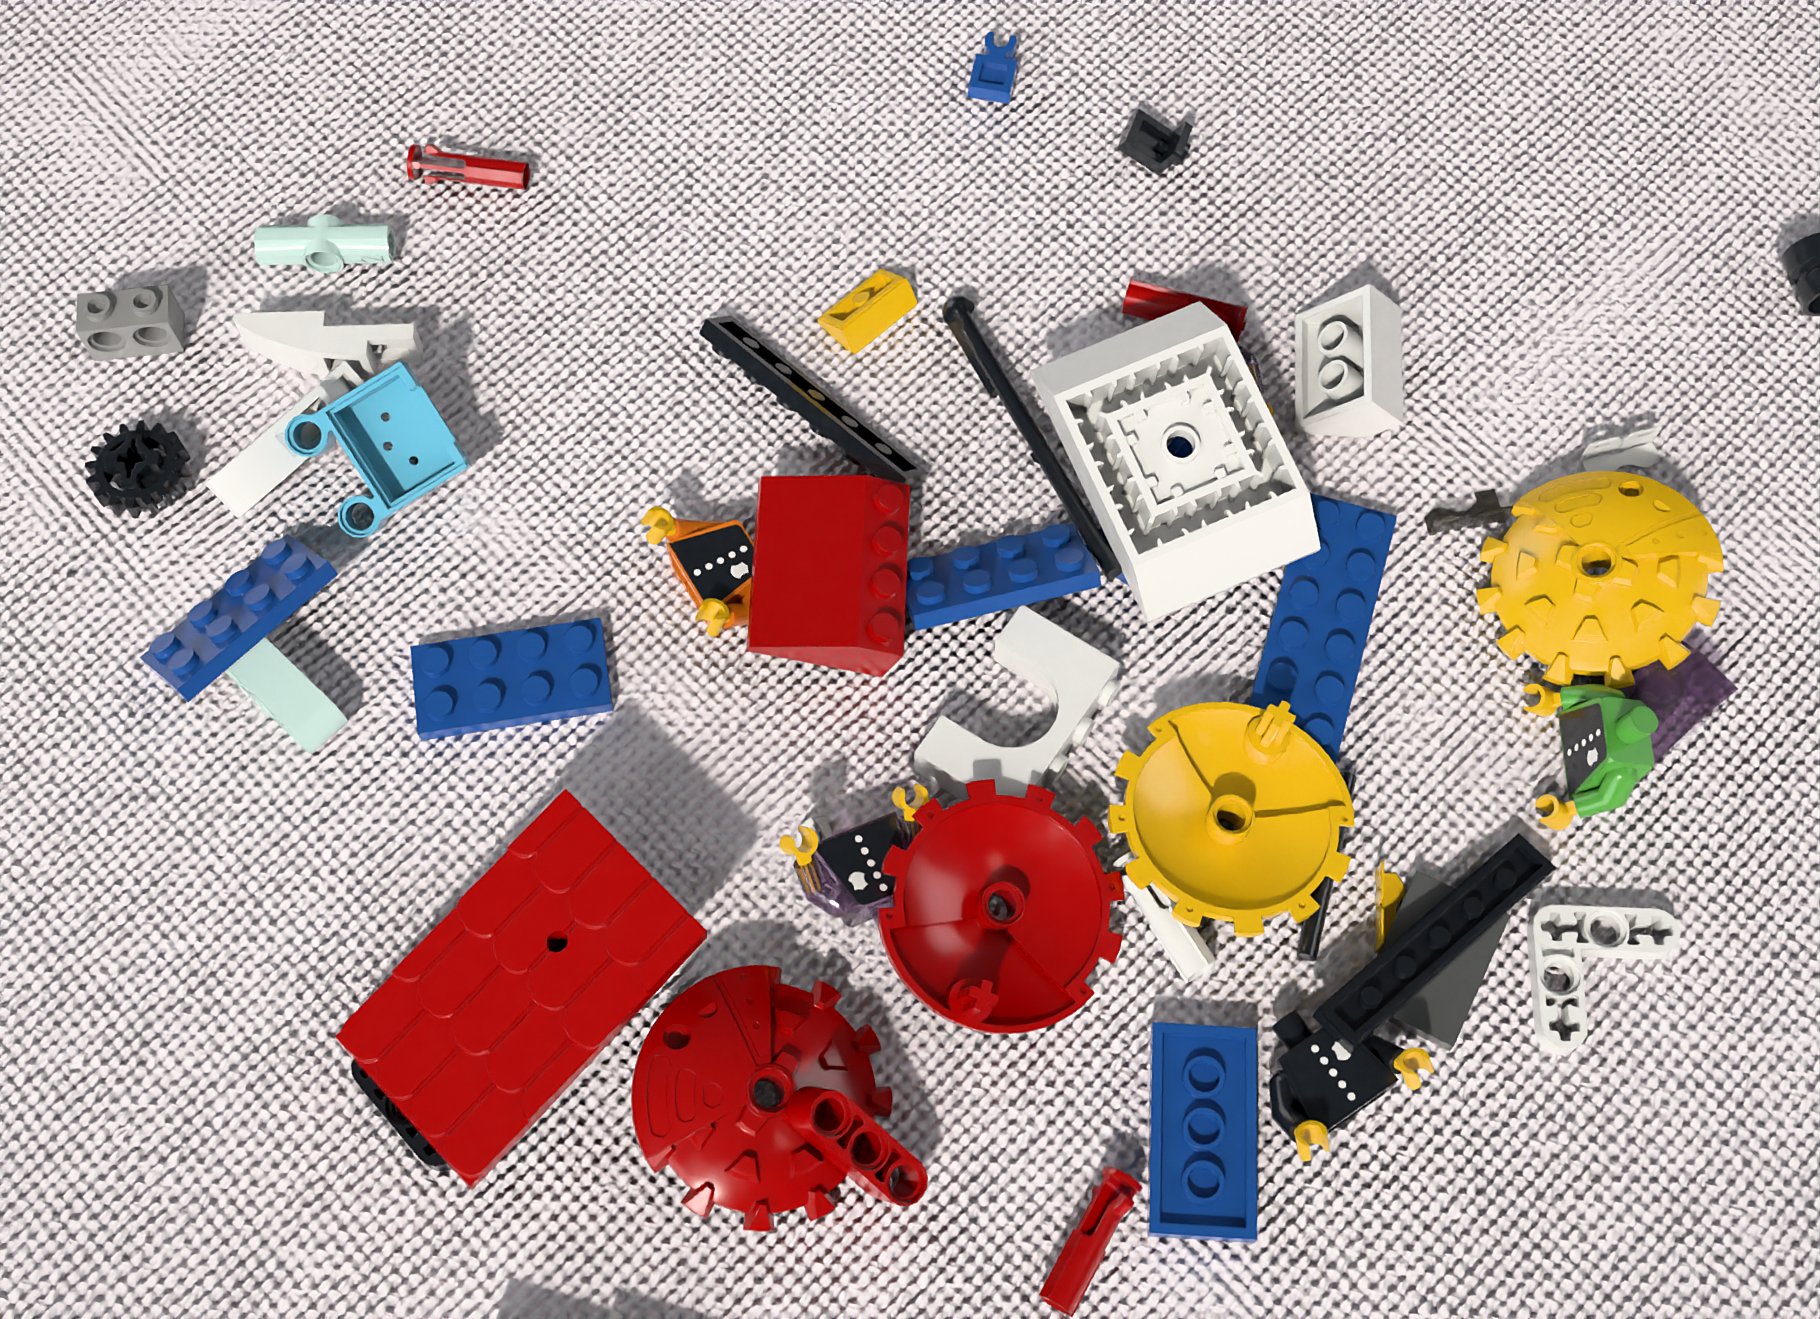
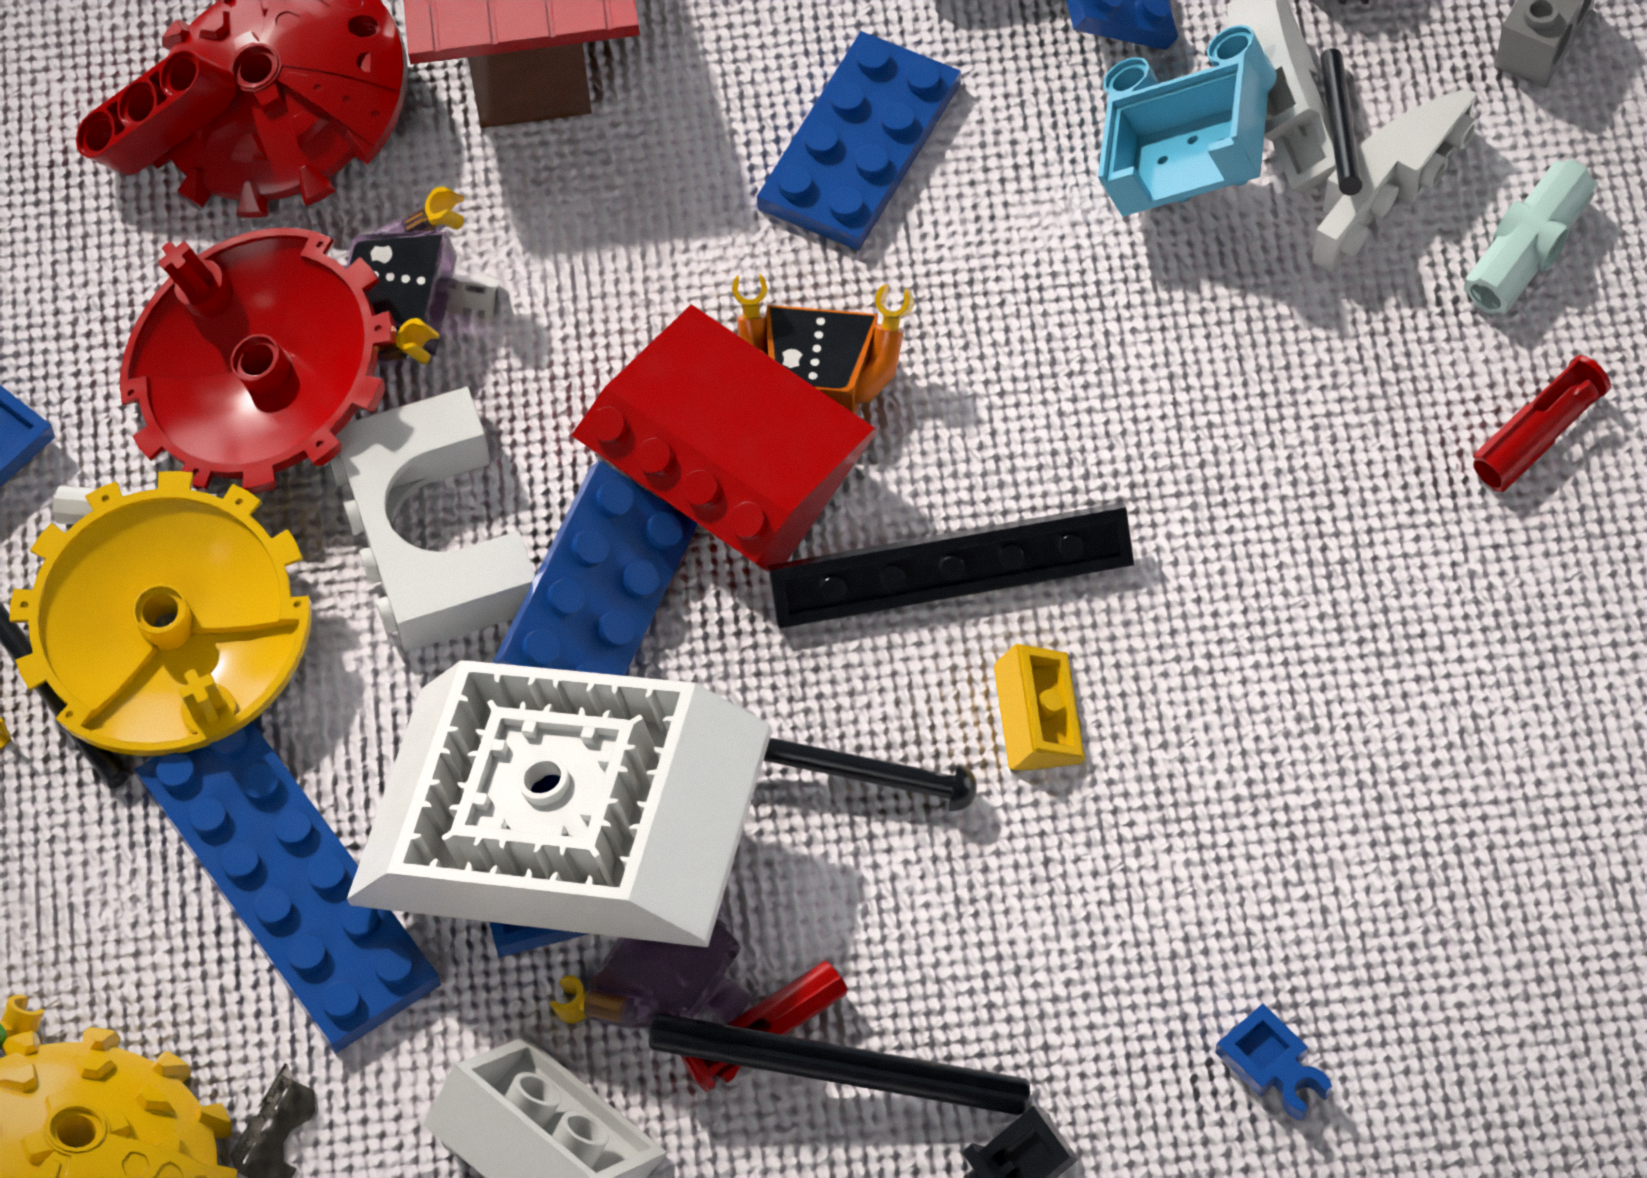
camera: 130 degrees right, 5 degrees down
(309, 377) = (1341, 122): none -> black bar
(1184, 251) = (839, 1064): none -> black axle

